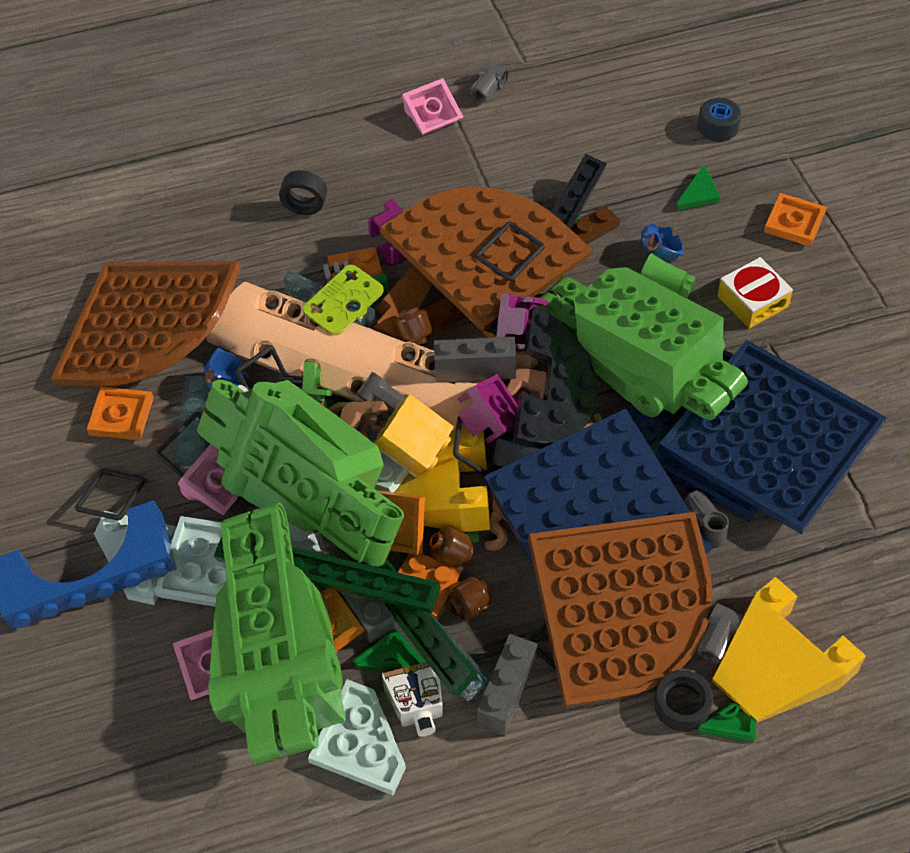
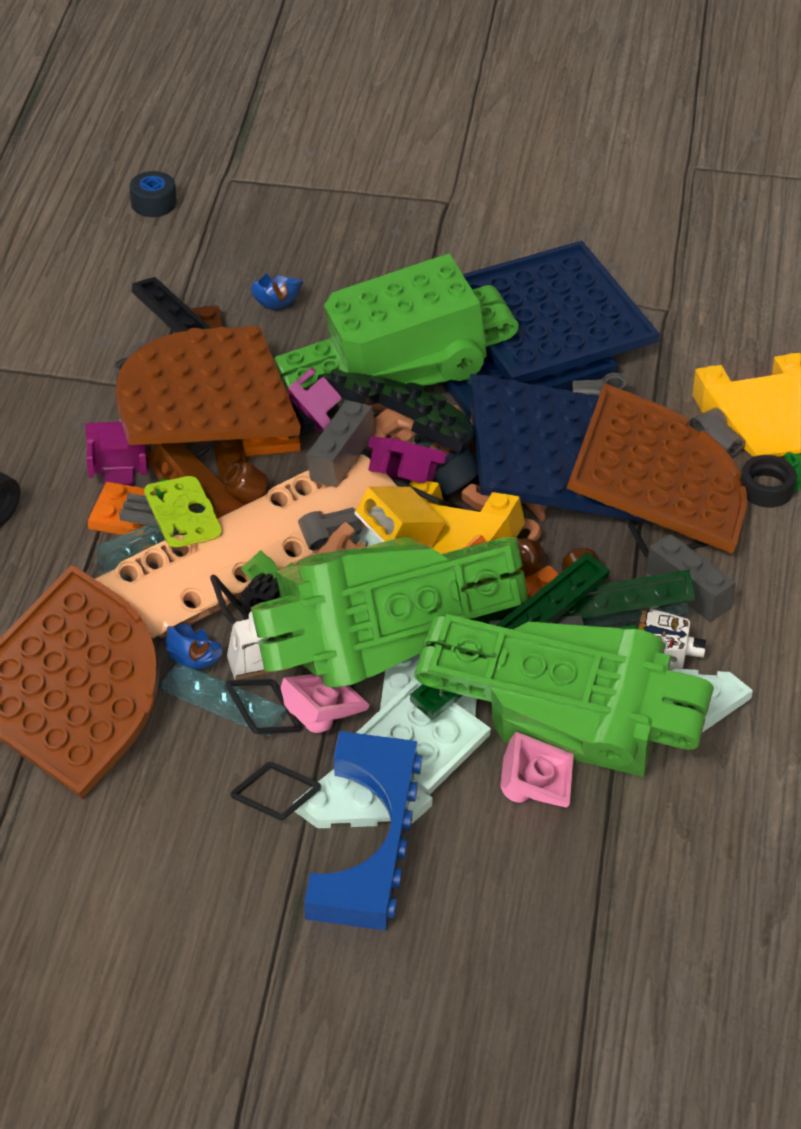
camera: 65 degrees left, 10 degrees down
(120, 413) = (172, 750): orange plate -> none
(509, 224) = (197, 355): black piece -> none
(668, 275) = (308, 307): bright green plant -> none
(699, 192) = (226, 244): green tile -> none
(754, 292) = (376, 255): piece -> none
(795, 219) = (314, 203): orange plate -> none

